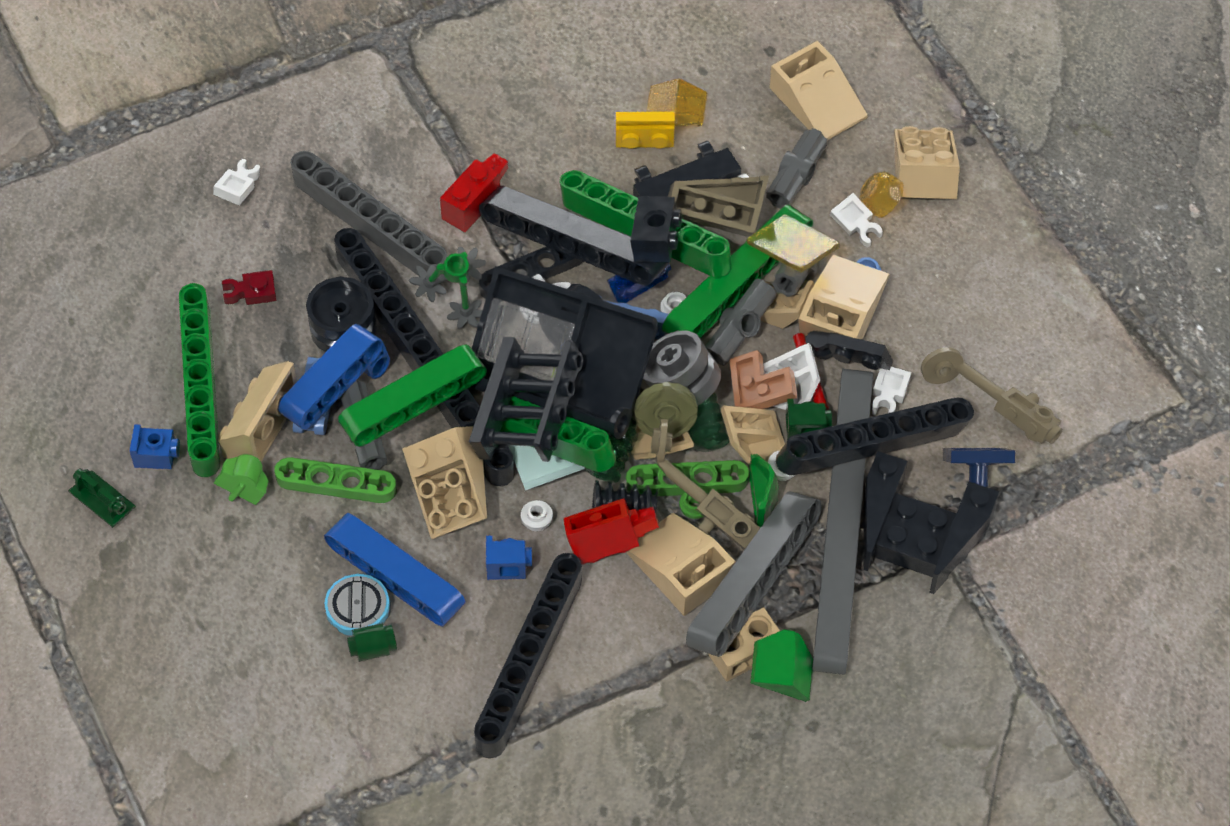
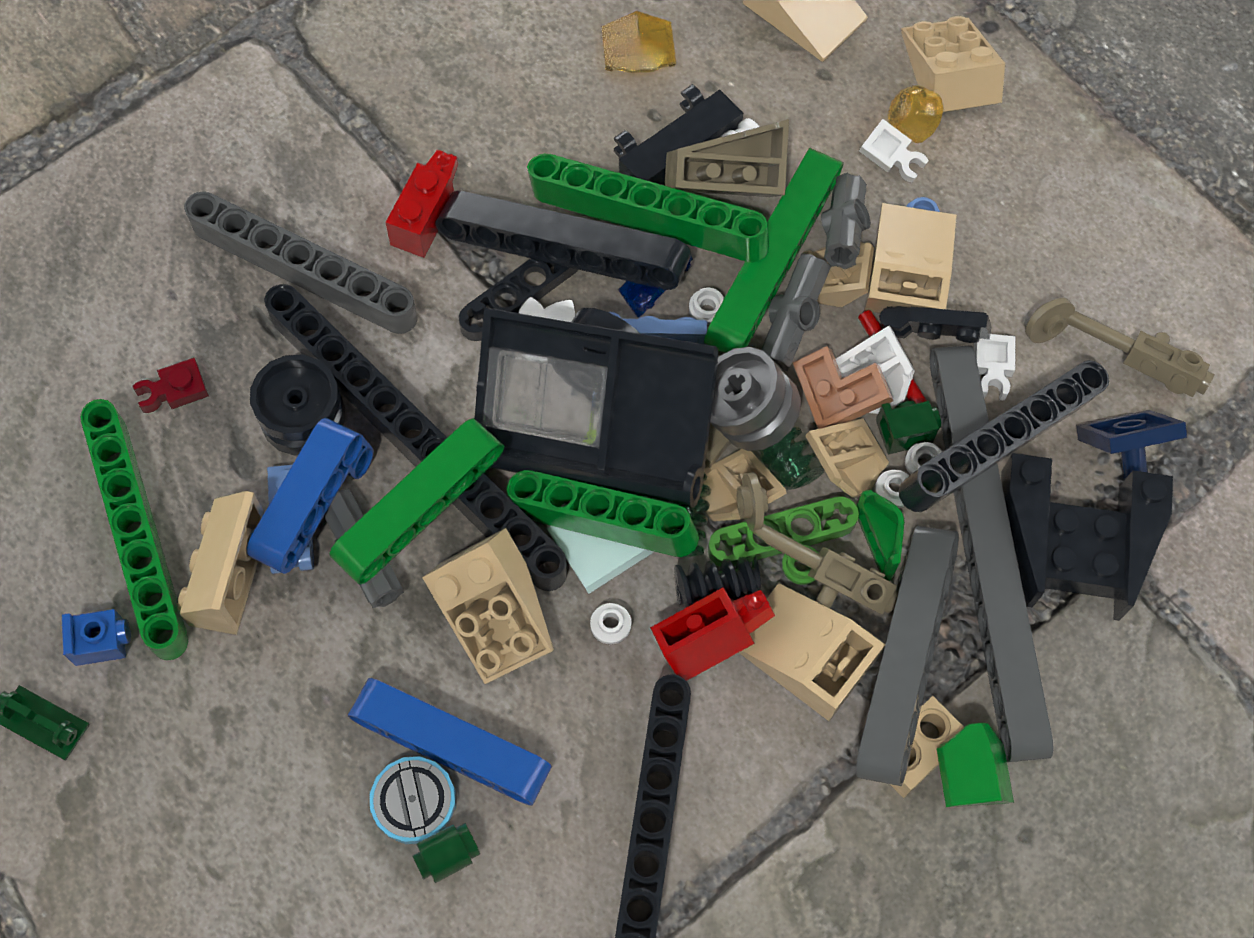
camera: 15 degrees left, 10 degrees up
(237, 185) = (122, 252): white plate -> none
(243, 478) = (223, 656): bright green piece -> none
(337, 474) = (342, 635): bright green beam -> none
(456, 269) = (432, 322): dark grey plant -> none
(504, 384) = (533, 463): black fence -> none
(507, 559) = (590, 694): blue brick -> none
(645, 129) = (612, 84): yellow plate -> none
(655, 229) = (670, 217): black brick -> none
(667, 402) = (744, 450): olive tile -> none
(793, 243) = (837, 200): clear yellow piece -> none
(796, 168) = (806, 96): dark grey piece -> none

